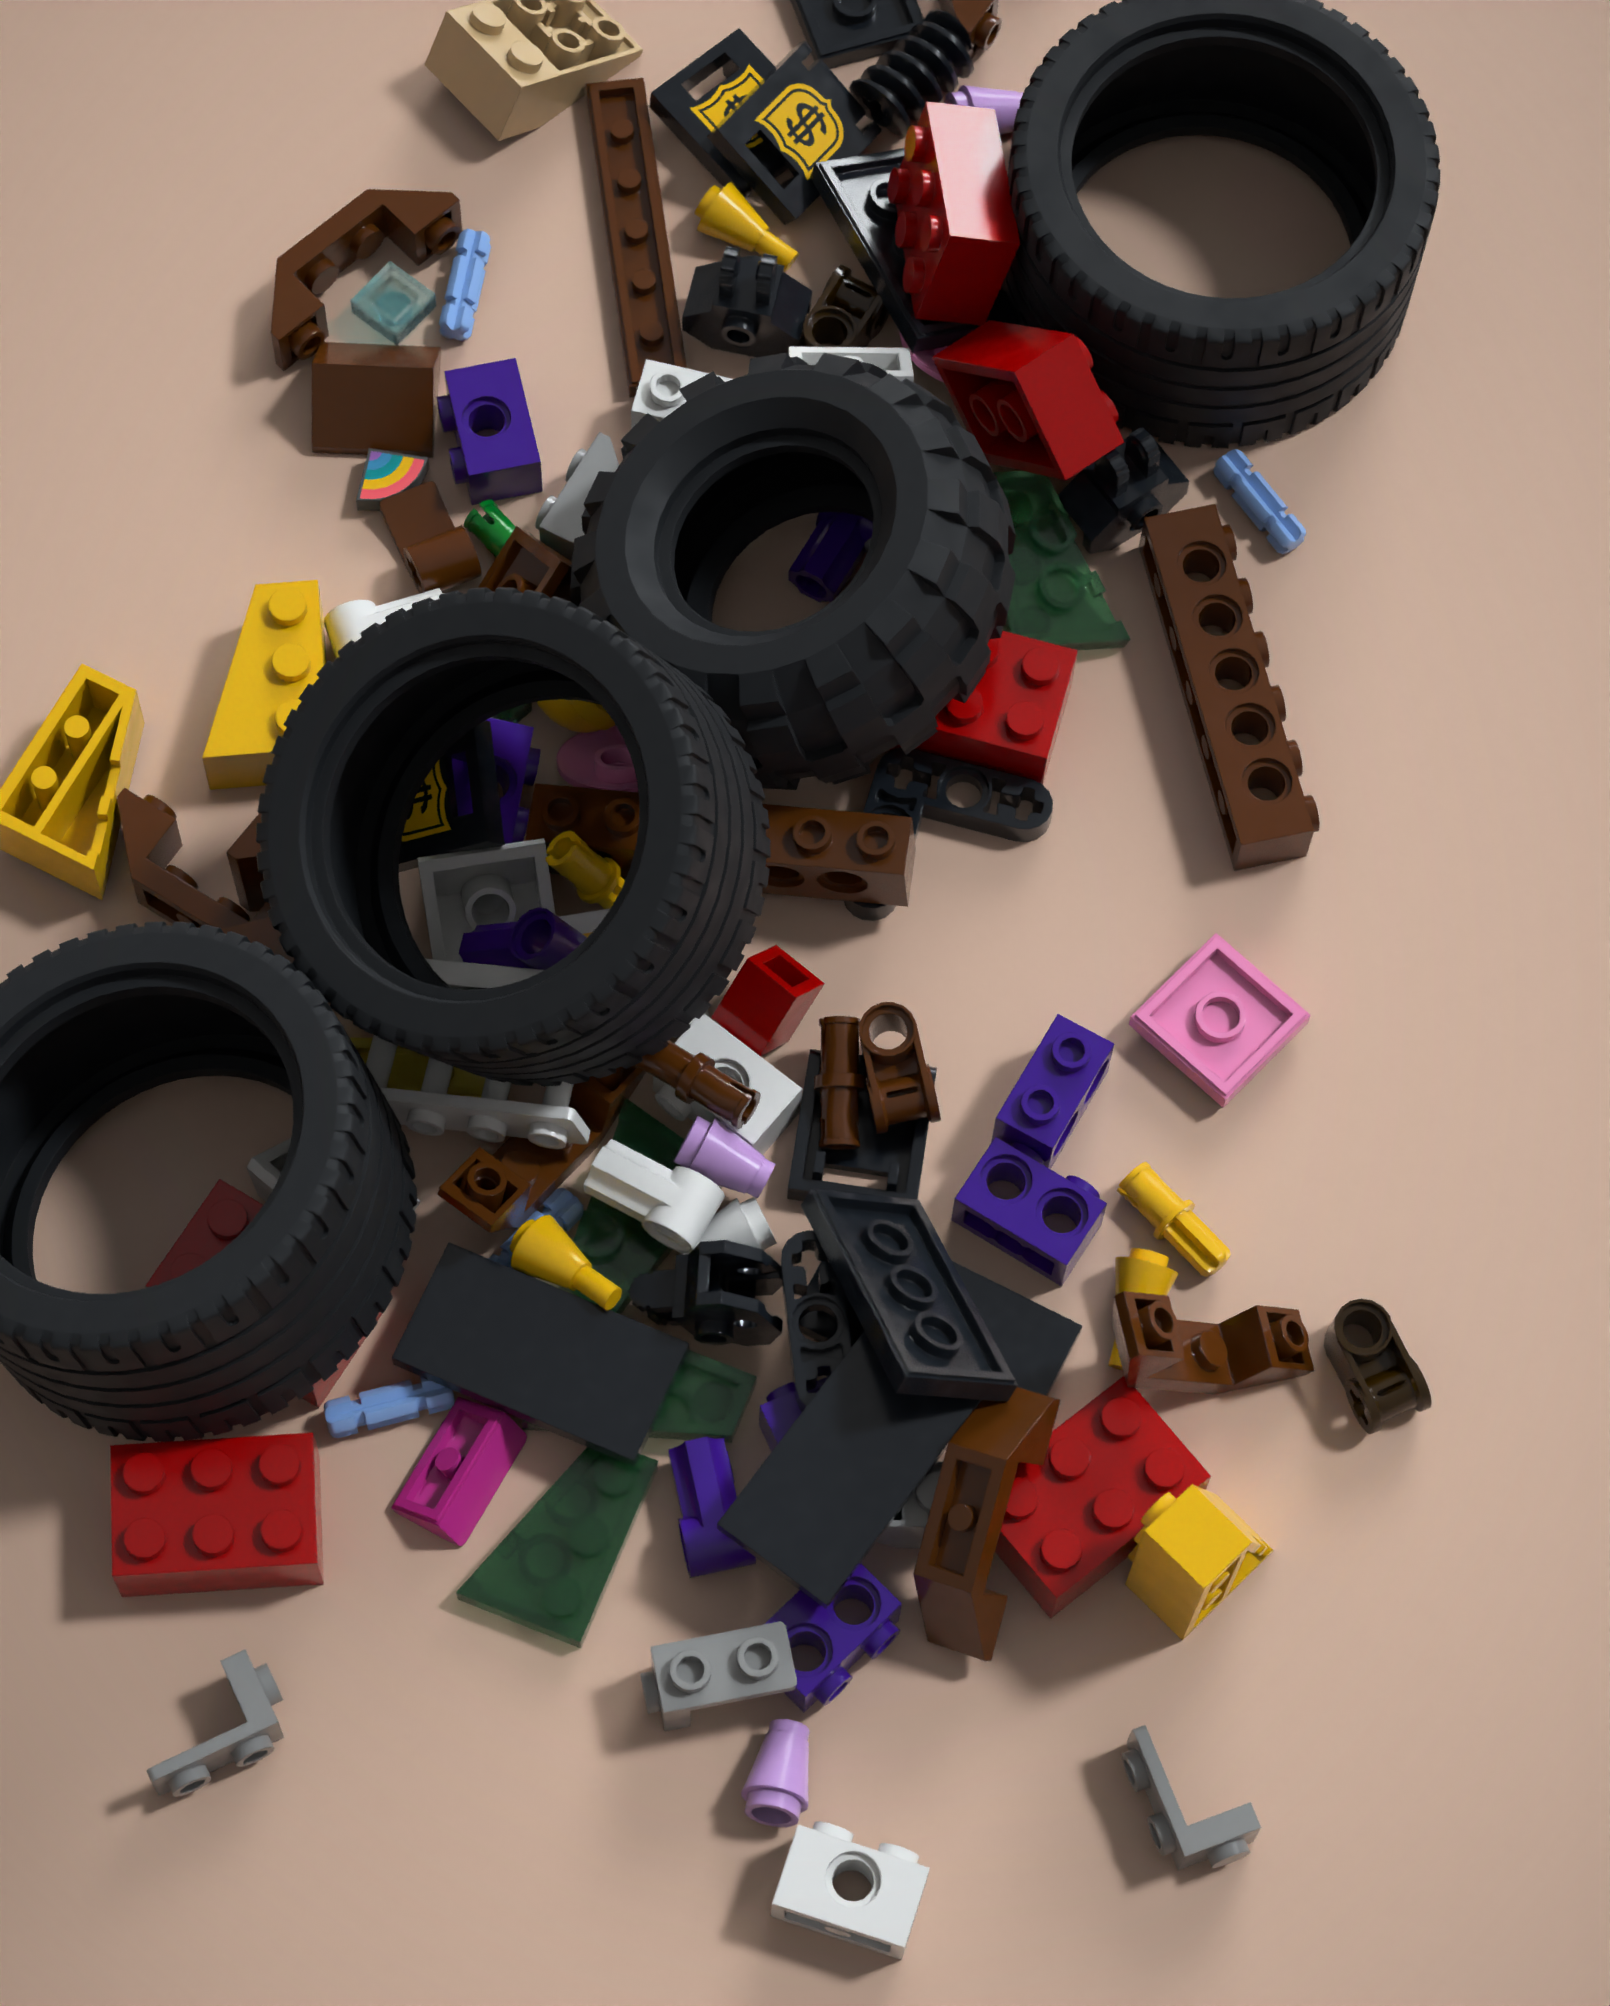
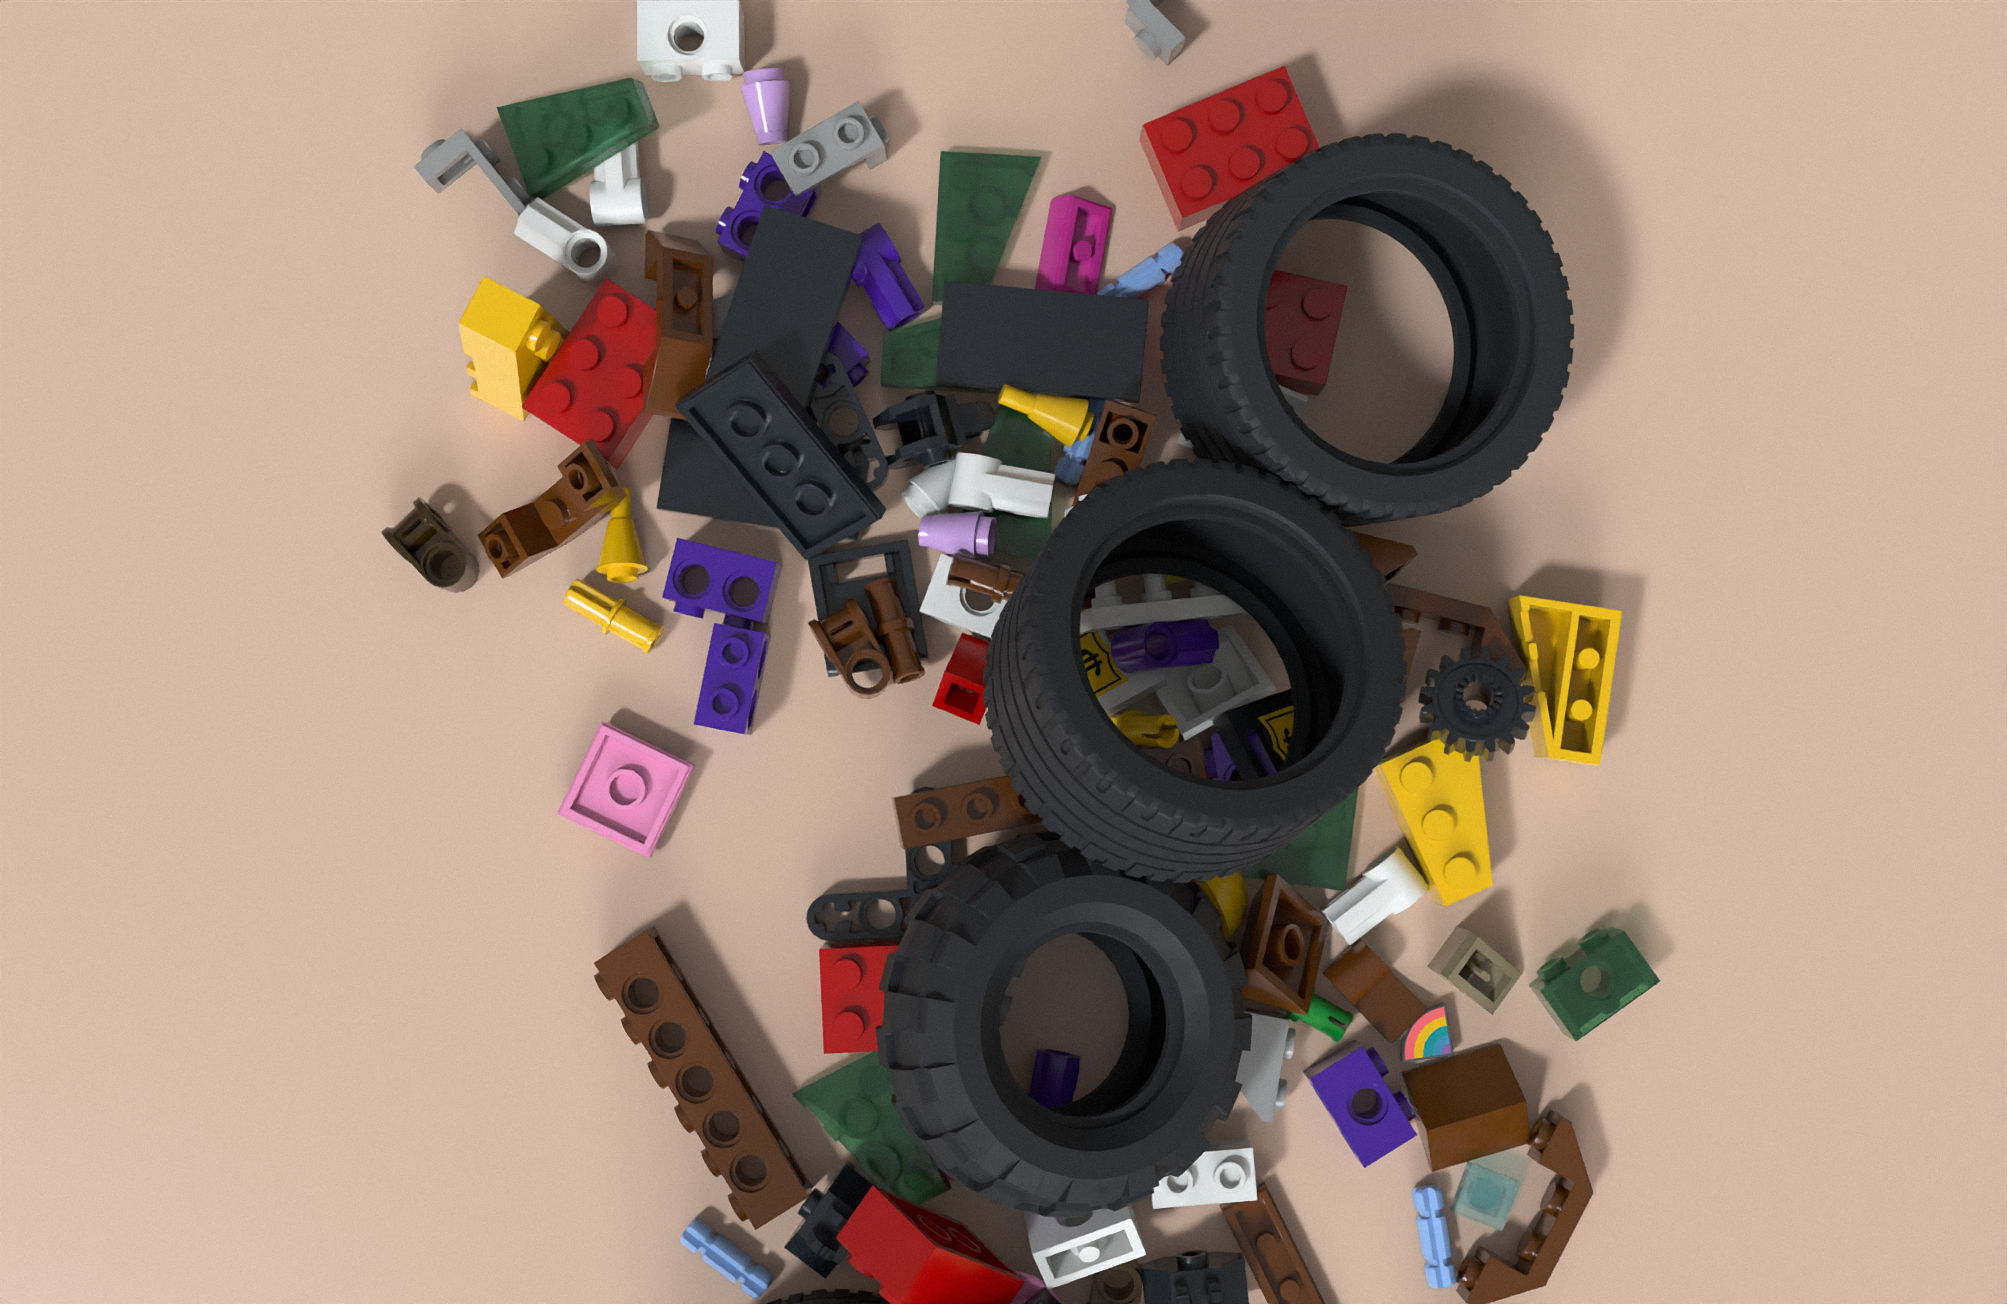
camera: 170 degrees right, 20 degrees up
(161, 758) = (1466, 728): none -> black gear
(199, 443) = (1623, 979): none -> clear green brick
(312, 527) = (1474, 969): none -> dark tan slope
(1006, 1732) = (619, 191): none -> white piece
(1041, 1807) = (575, 131): none -> clear green wing
(1097, 1688) = (565, 241): none -> white piece

